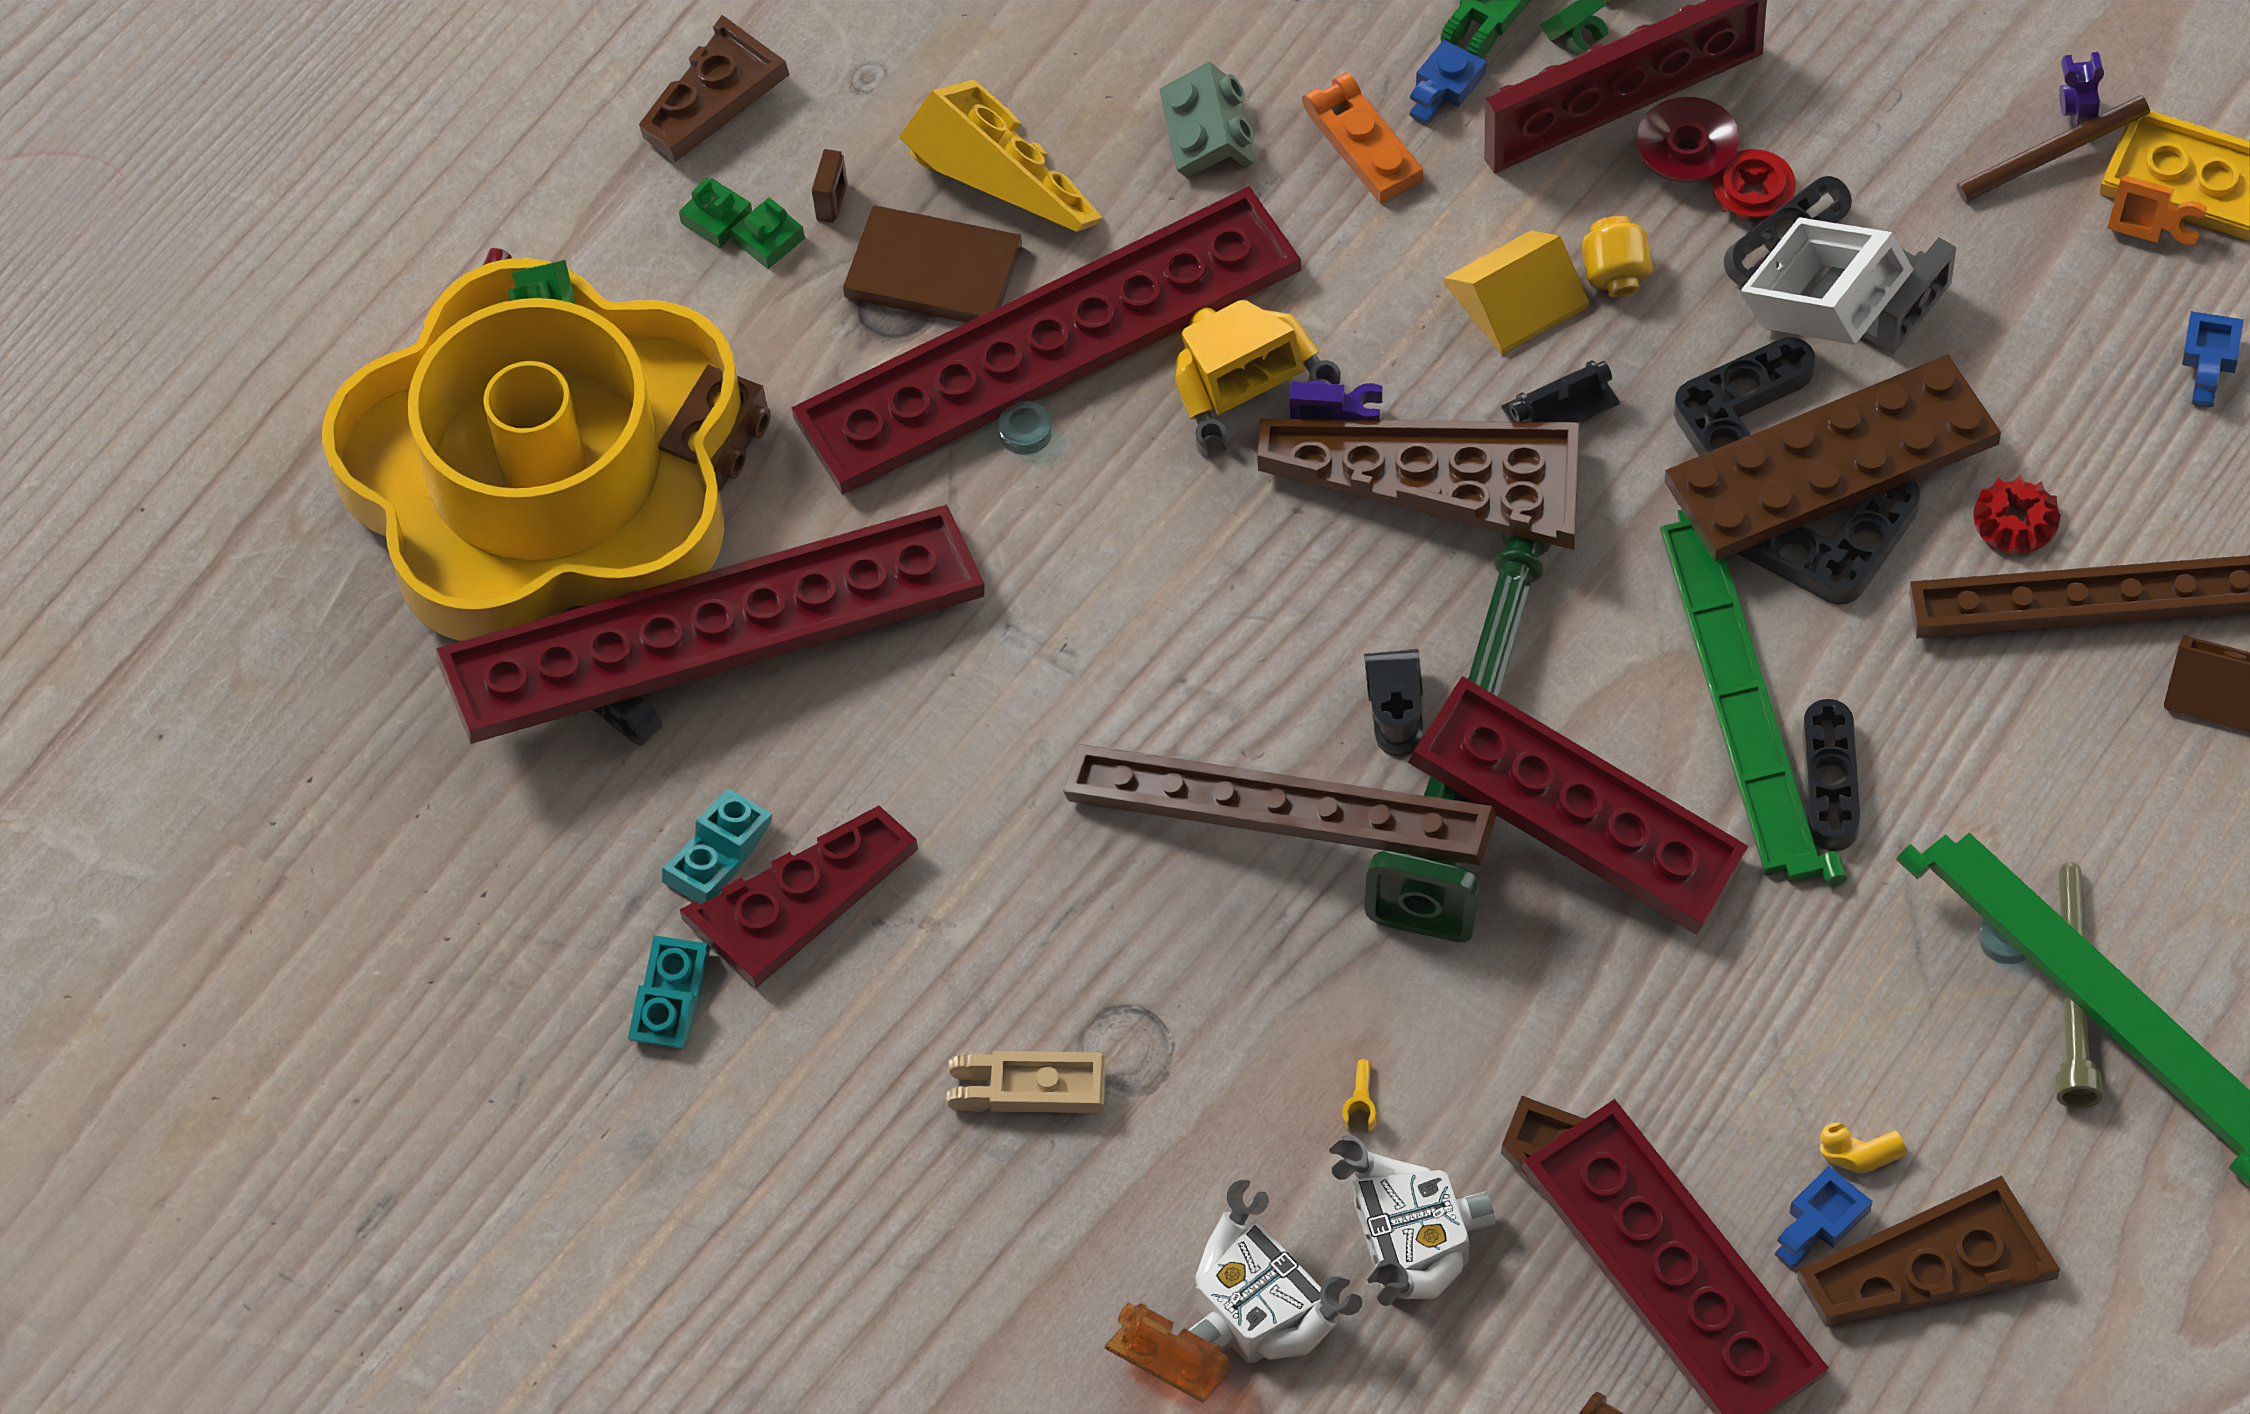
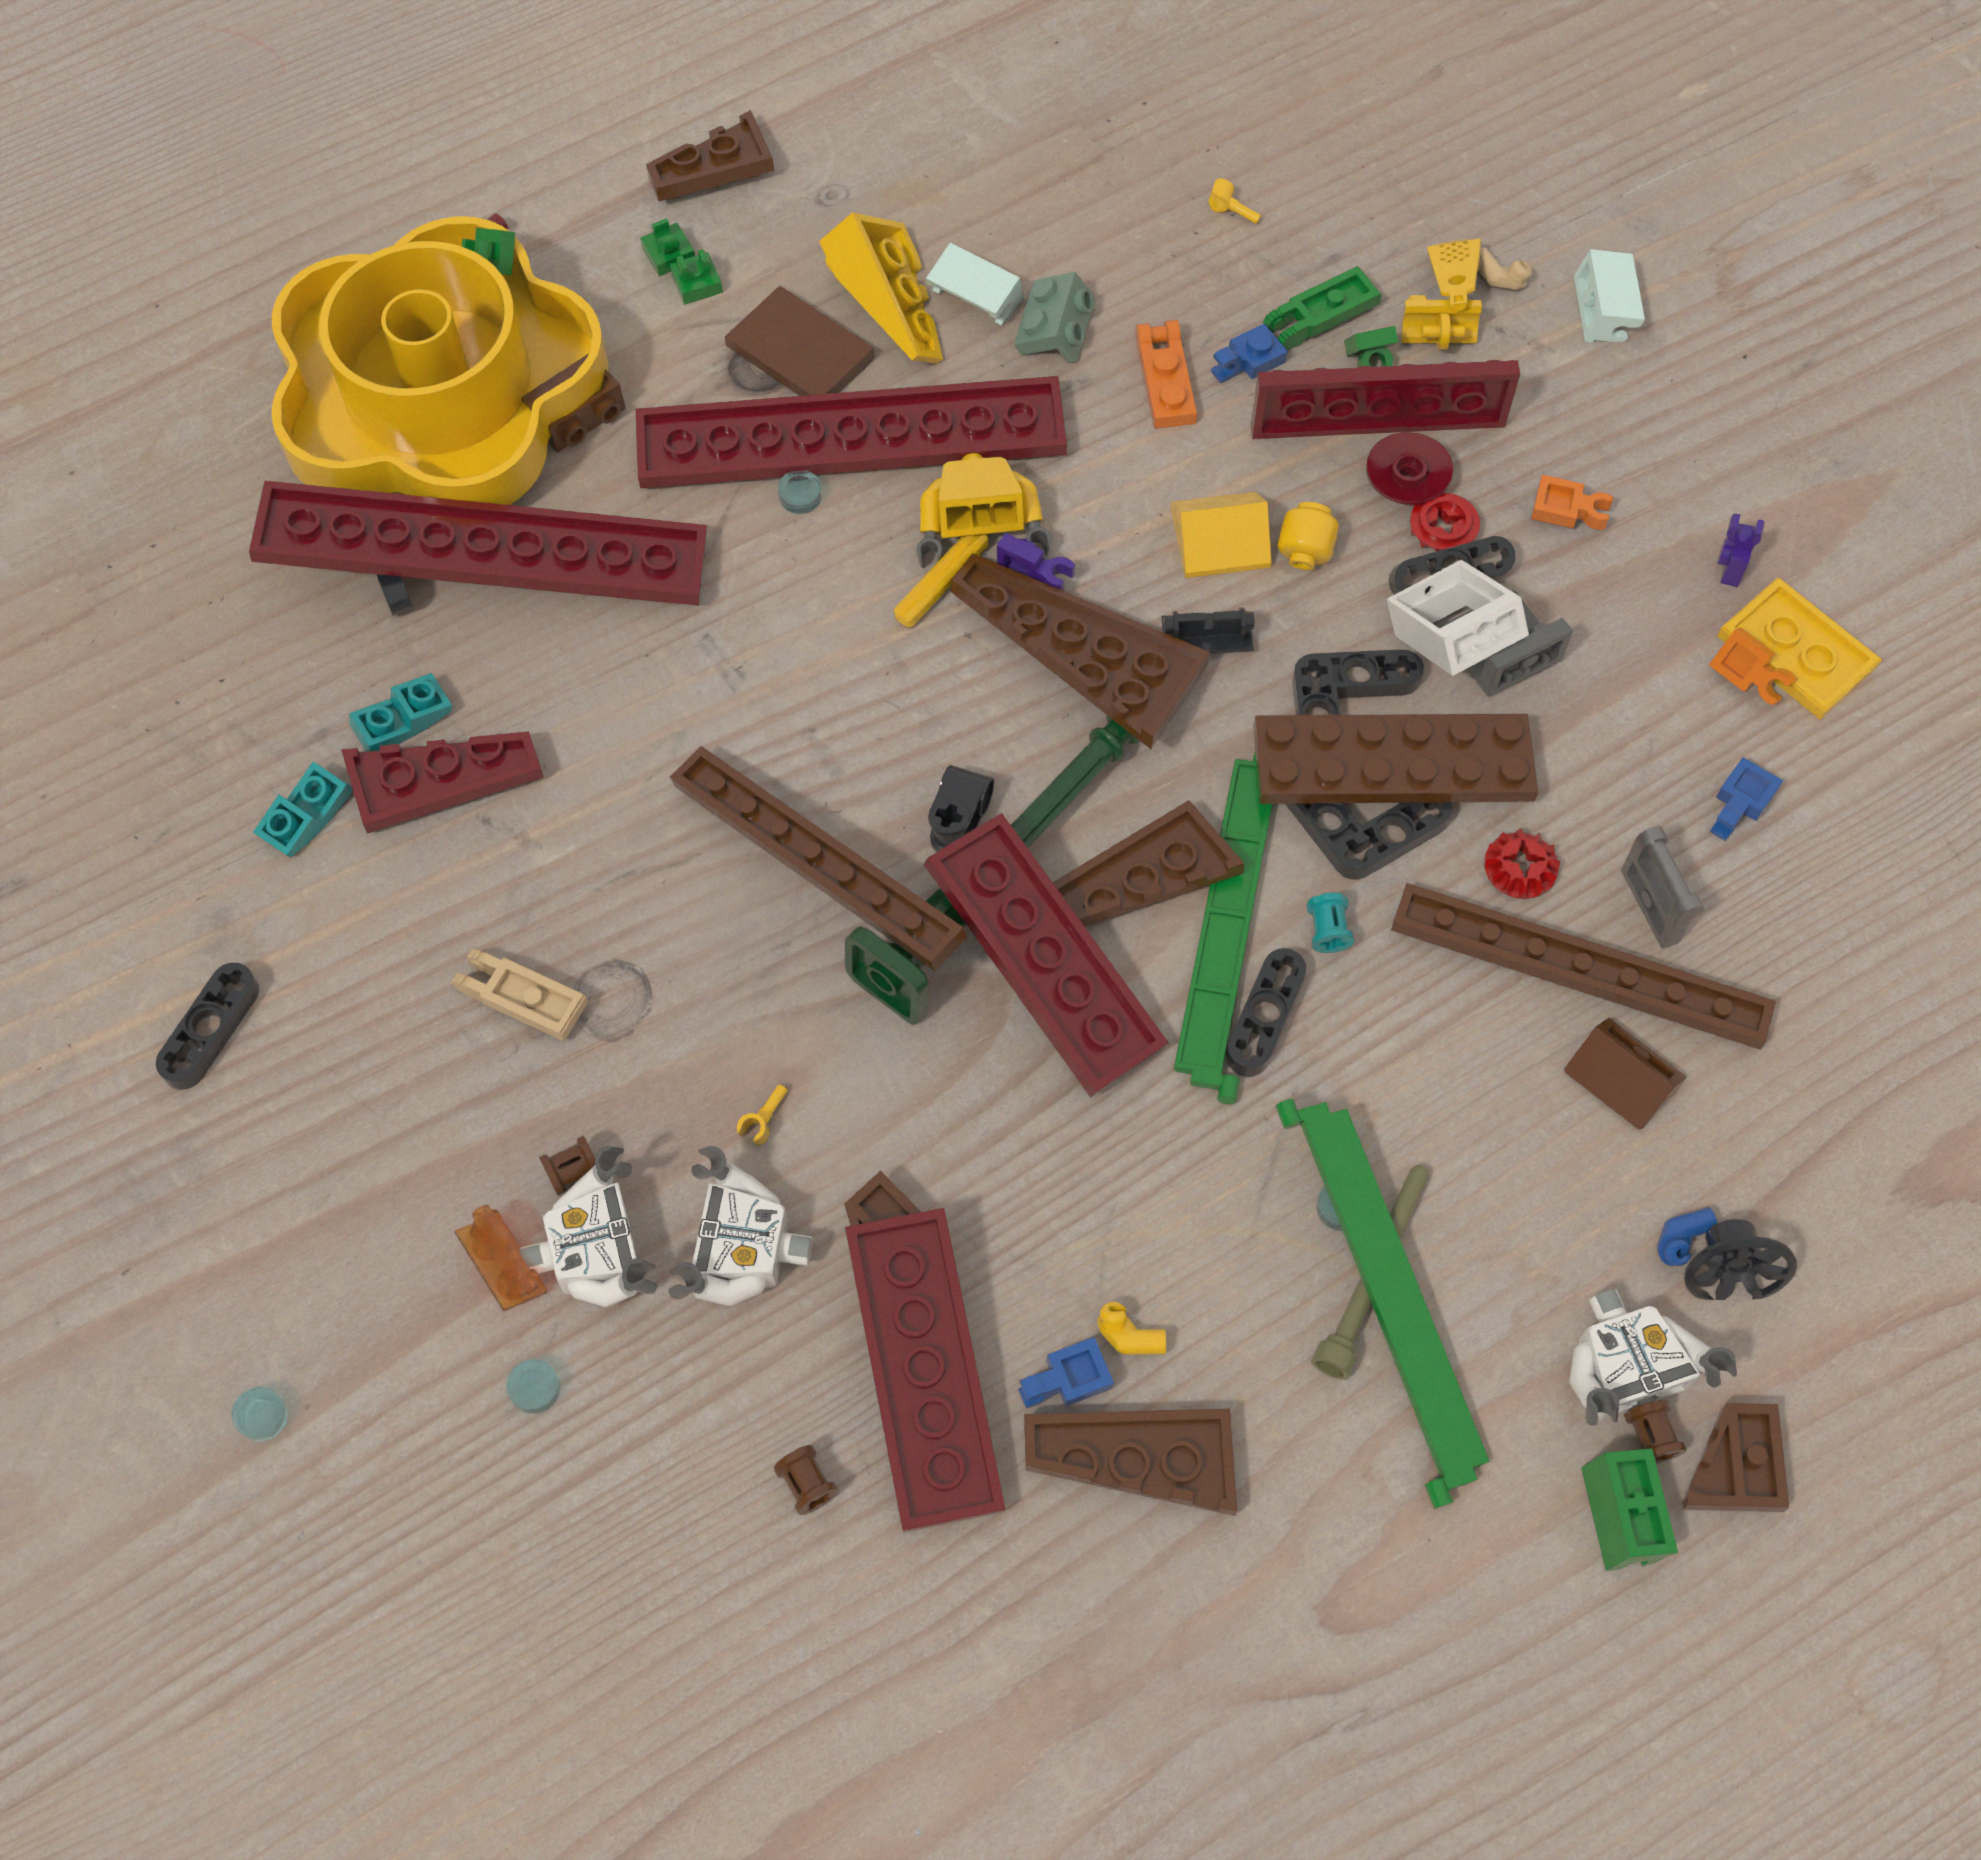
camera: 20 degrees right, 5 degrees up
(712, 1280) = (204, 1005): none -> black beam
(829, 185) = (755, 259): reddish brown tile -> none
(1099, 115) = (977, 282): none -> light aqua hinge
(1171, 1240) = (568, 1165): none -> reddish brown bush
(1236, 462) = (938, 579): none -> yellow axle
(1636, 671) = (1150, 866): none -> reddish brown wing
(1851, 655) = (1330, 923): none -> teal bush
(1871, 114) = (1563, 503): none -> orange plate
(2053, 148) = (1696, 585): reddish brown bar -> none
(2173, 480) = (1660, 887): none -> flat silver plate

